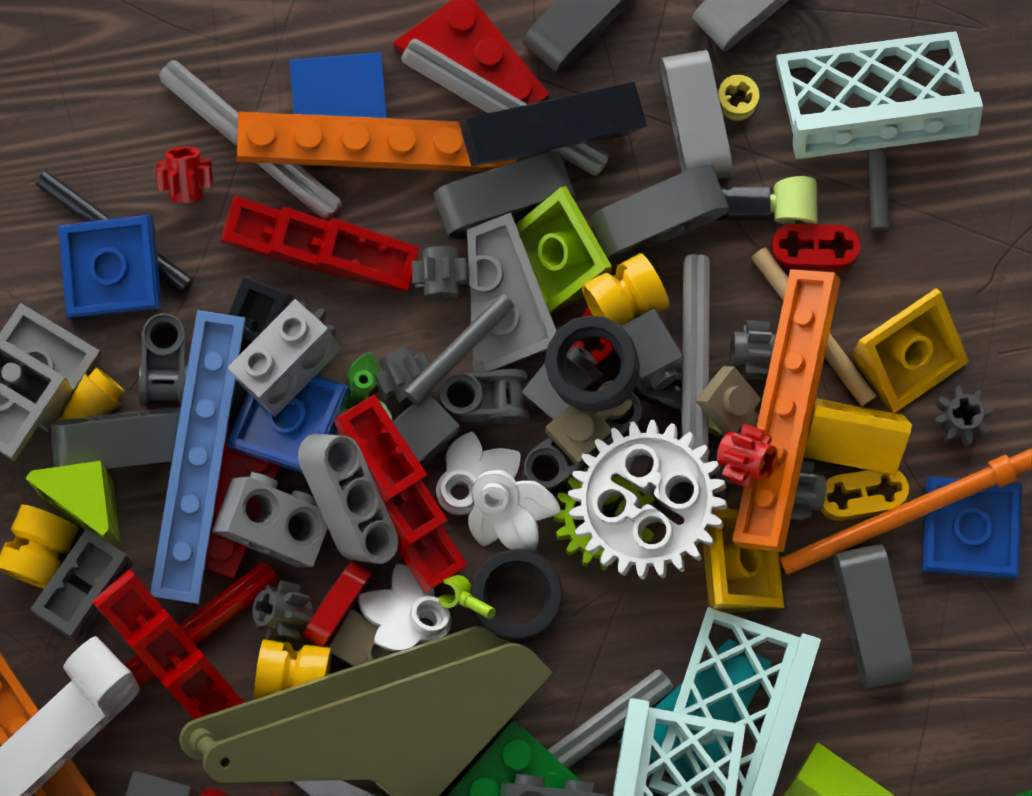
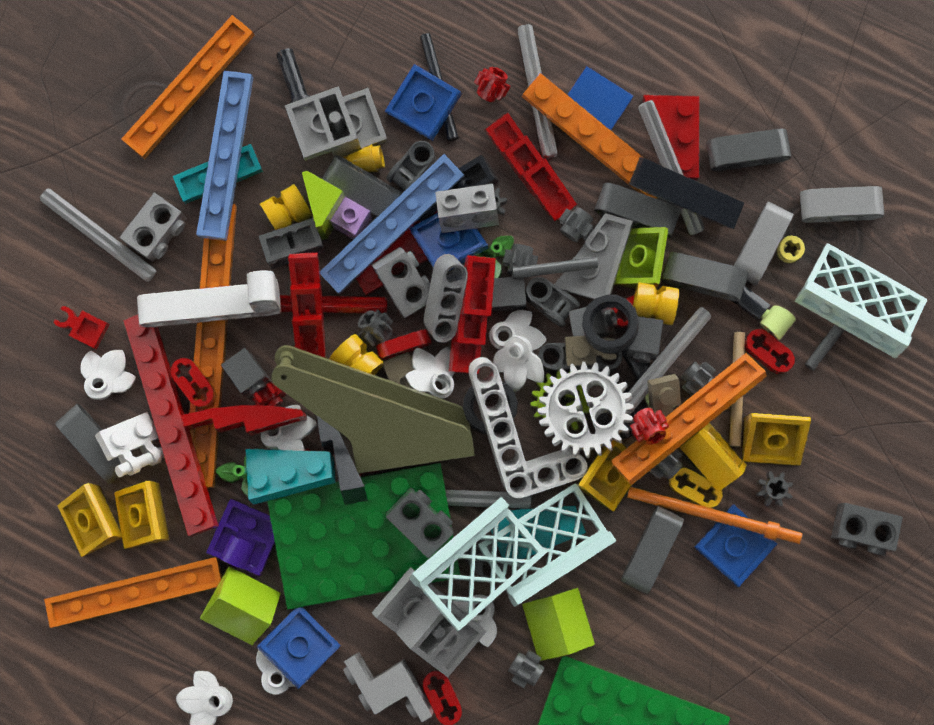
camera: 45 degrees right, 5 degrees up
(136, 493) = (351, 218): none -> lavender brick
(464, 597) = (464, 386): lime hand -> none
(580, 616) = (509, 440): none -> white beam

